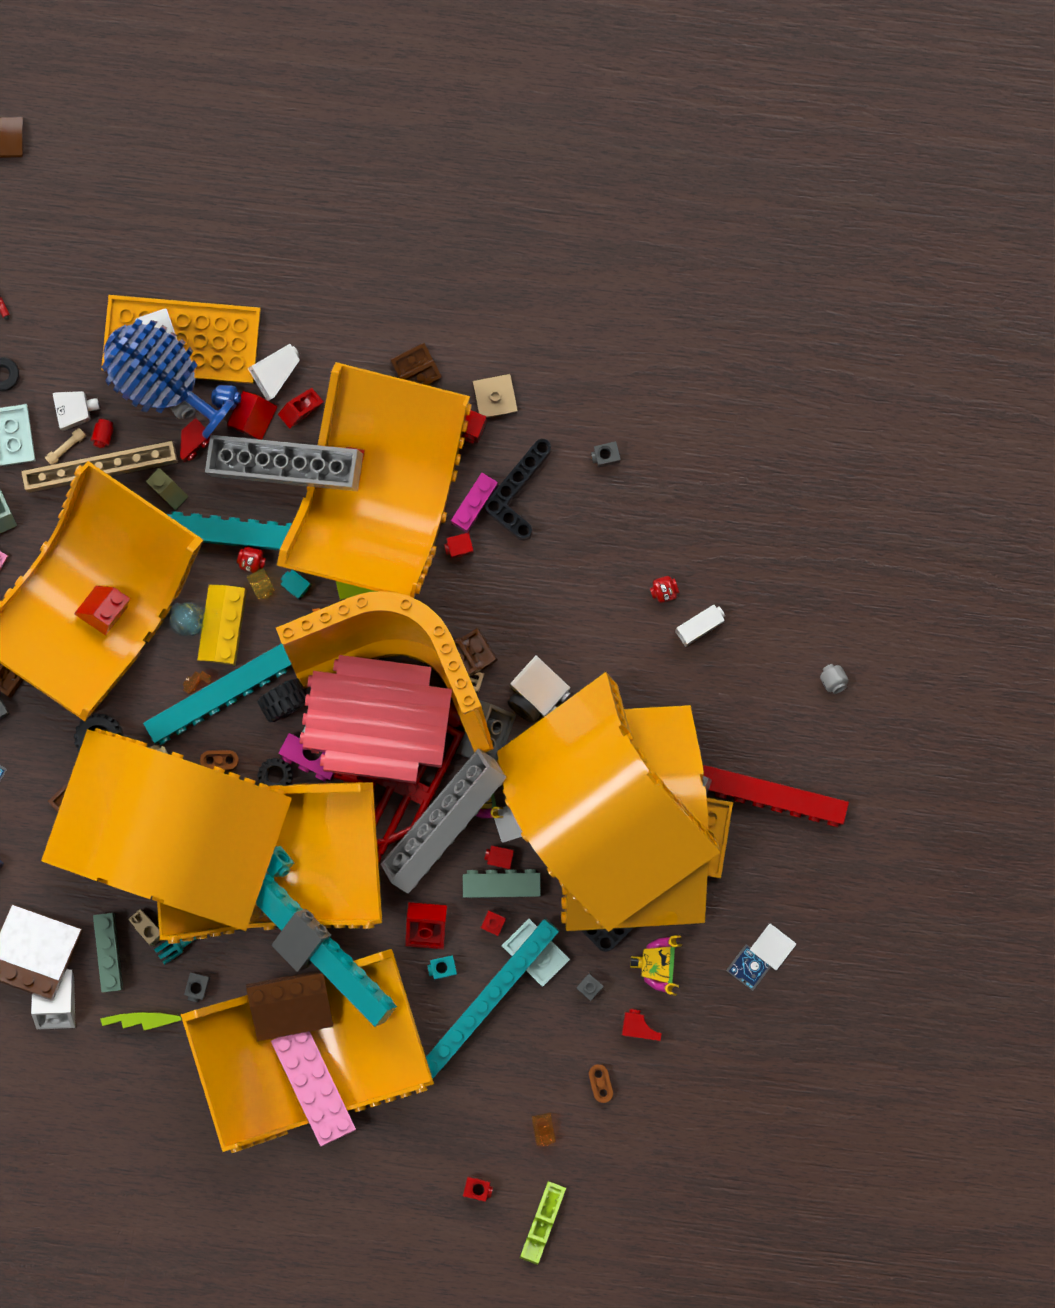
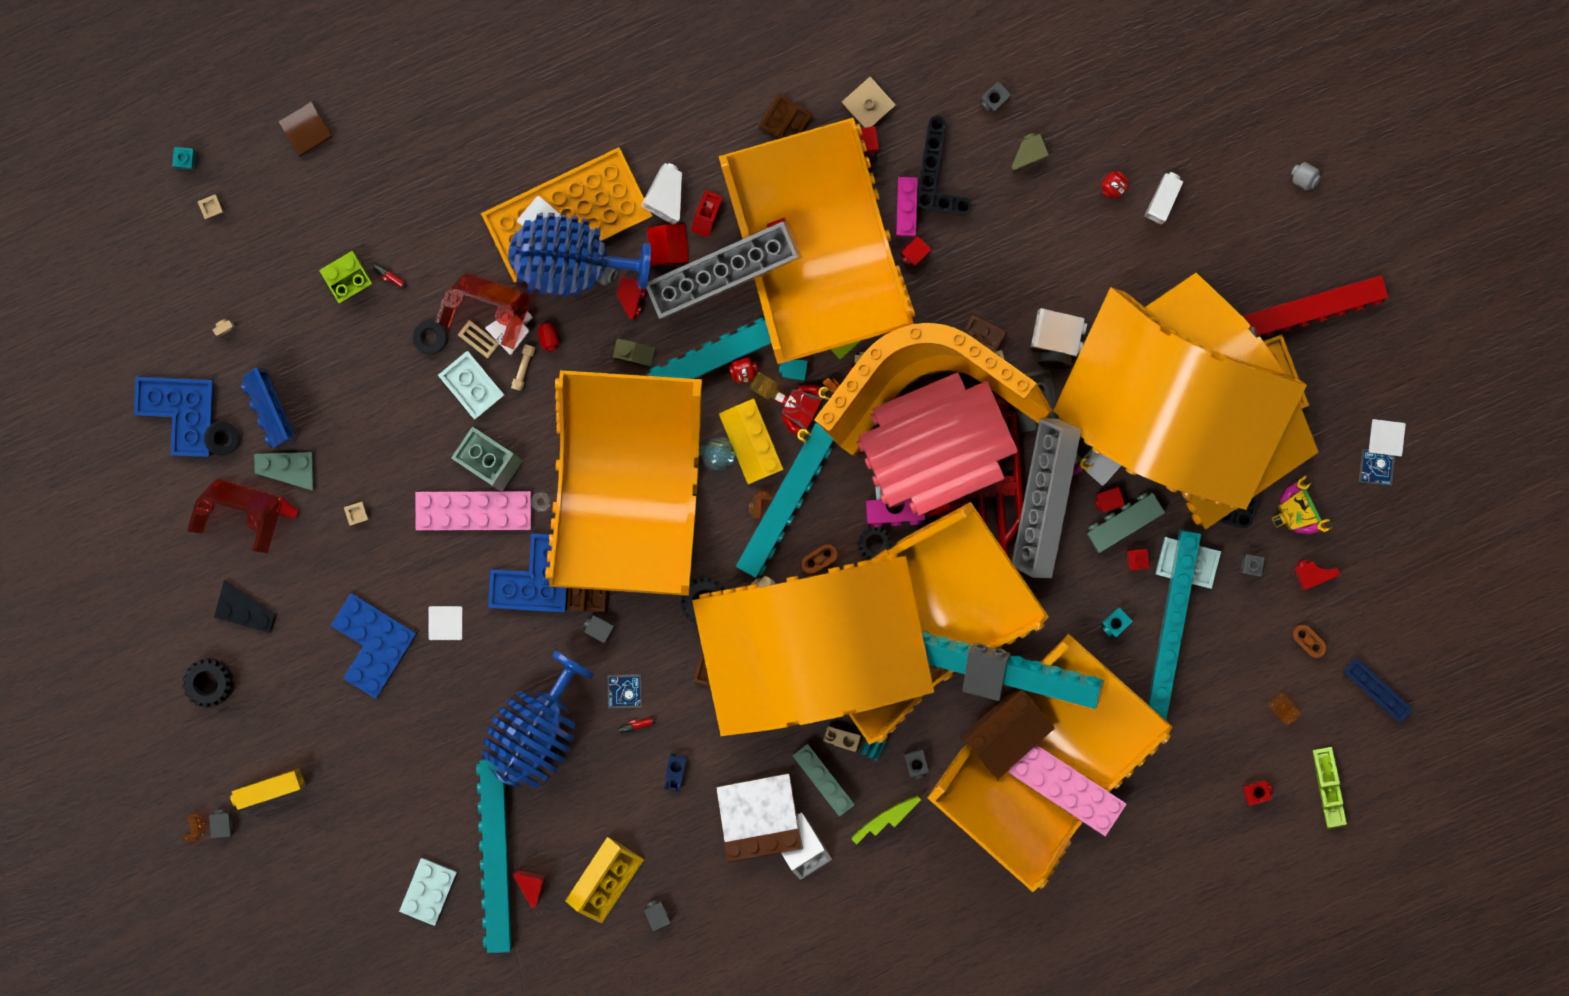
camera: 30 degrees left, 5 degrees up
(10, 563) = (545, 497): none -> clear plate
(48, 415) = (491, 349): none -> tan tile
(85, 383) = (510, 302): none -> clear red windscreen
(103, 608) = (640, 488): red slope -> none
(111, 464) = (570, 361): tan brick -> none
(223, 393) = (634, 240): blue head -> none
(276, 616) = (801, 407): none -> red torso
(279, 863) = (927, 616): teal brick -> none
(282, 700) = (845, 475): black tyre -> none
(426, 925) = (1081, 595): red slope -> none
(607, 518) = (1030, 151): none -> olive slope
(635, 1162) = (1377, 690): none -> dark blue plate

